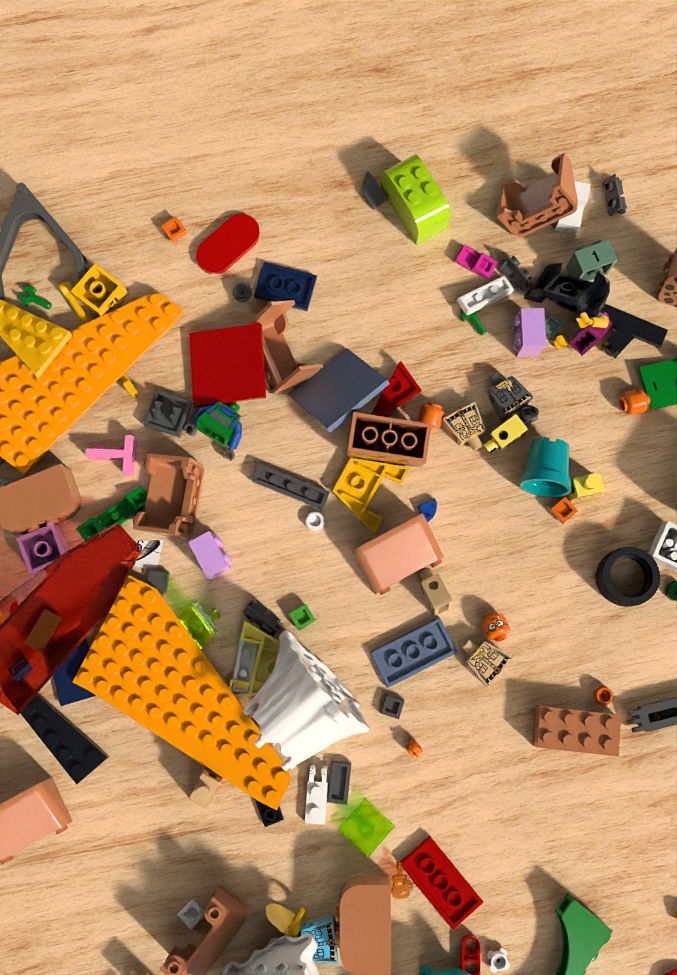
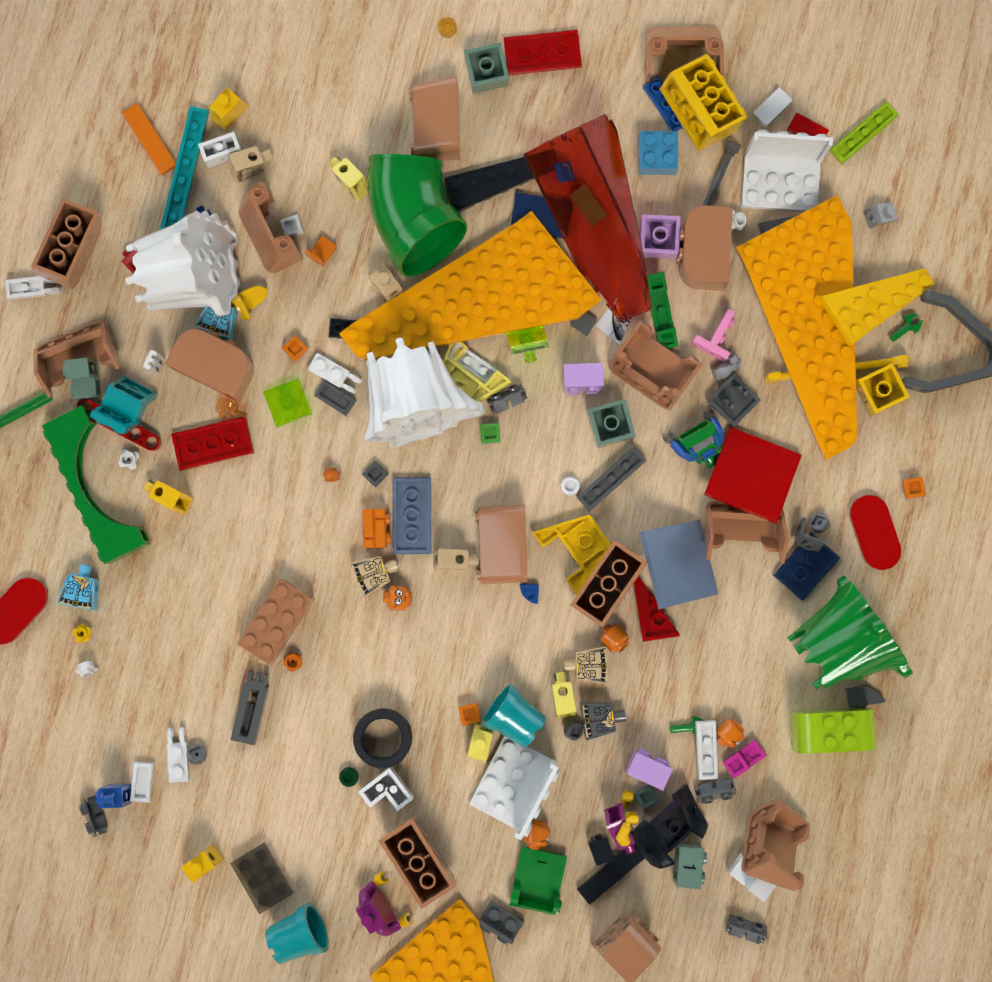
camera: 120 degrees right, 5 degrees up
(117, 879) = (349, 177): none -> light yellow torso
(121, 798) = (413, 211): none -> green cylinder
(143, 434) = (727, 368): none -> light grey arm
(203, 870) = (321, 251): none -> orange bracket
(241, 510) = (611, 423): none -> sand green brick
(264, 295) = (806, 541): none -> dark grey bracket
(310, 847) = (295, 348): none -> orange plate
(332, 215) = (848, 640): none -> green piece
(443, 679) = (375, 528): none -> orange brick
(461, 282) = (730, 733): none -> orange head
(515, 899) = (168, 496): none -> yellow torso
(606, 434) = (515, 786): none -> white bracket
(648, 940) = (80, 590): none -> medium azure torso

